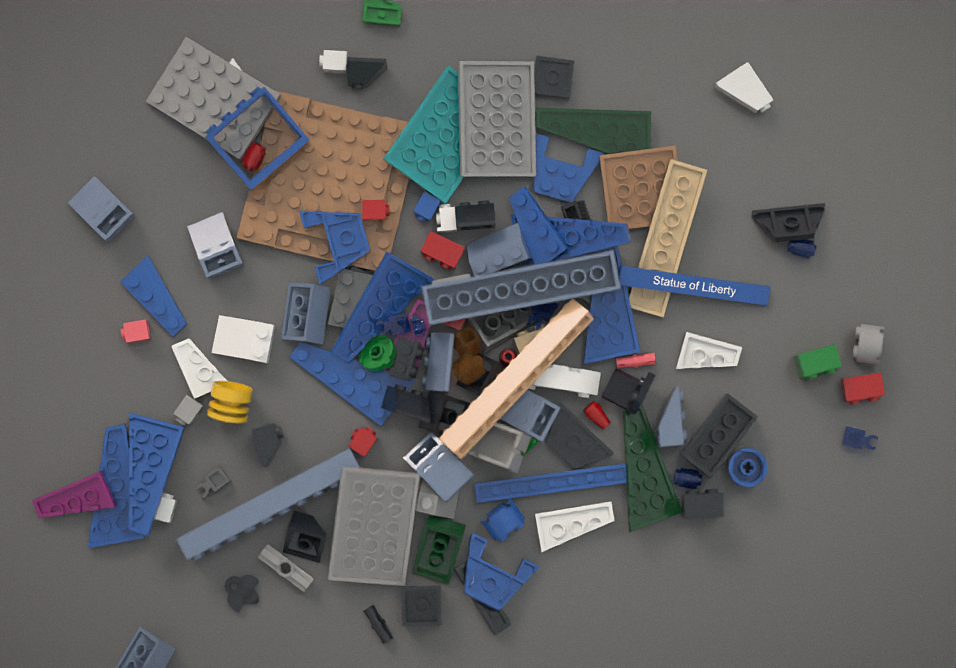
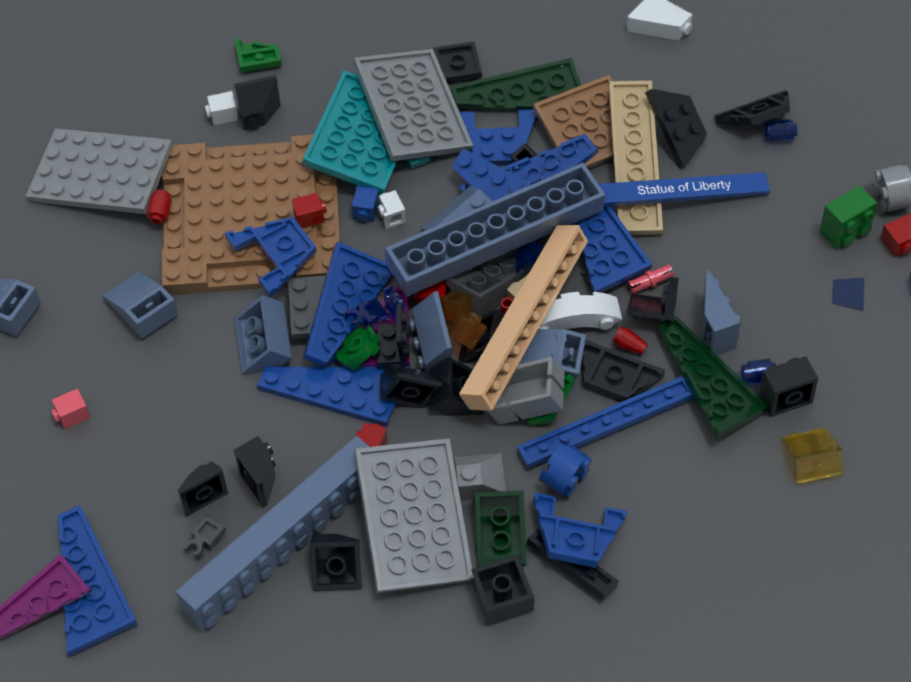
camera: 15 degrees left, 30 degrees down
(150, 463) = (122, 533): blue wing -> none
(152, 293) = (79, 370): blue wing -> none
(166, 508) = (152, 581): white brick -> none
(188, 410) = (153, 469): light grey brick -> none
(196, 368) = (152, 429): white wing -> none
(221, 439) = (202, 488): none -> black slope
(229, 405) = (200, 438): yellow wheel -> none
(243, 339) = (200, 382): white slope -> none
(243, 594) = (277, 650): black plate -> none
(276, 559) = (335, 606): light grey piece -> none
(281, 158) = (173, 146): blue window -> none
(378, 624) = (456, 632): black pin -> none
(438, 467) = (471, 433): sand blue slope -> none
(442, 250) = (392, 231): red brick -> none
(475, 216) = (423, 197): black slope -> none
(569, 523) = (644, 456): white wing -> none
(700, 564) = (814, 455): none -> clear yellow bracket
(707, 352) = (724, 250): white wing -> none
(716, 216) = (678, 123): none -> black wing
(718, 435) = (774, 317): black brick -> none
(755, 460) = (820, 338): blue brick -> none
(792, 423) = (849, 292): none -> dark blue sticker

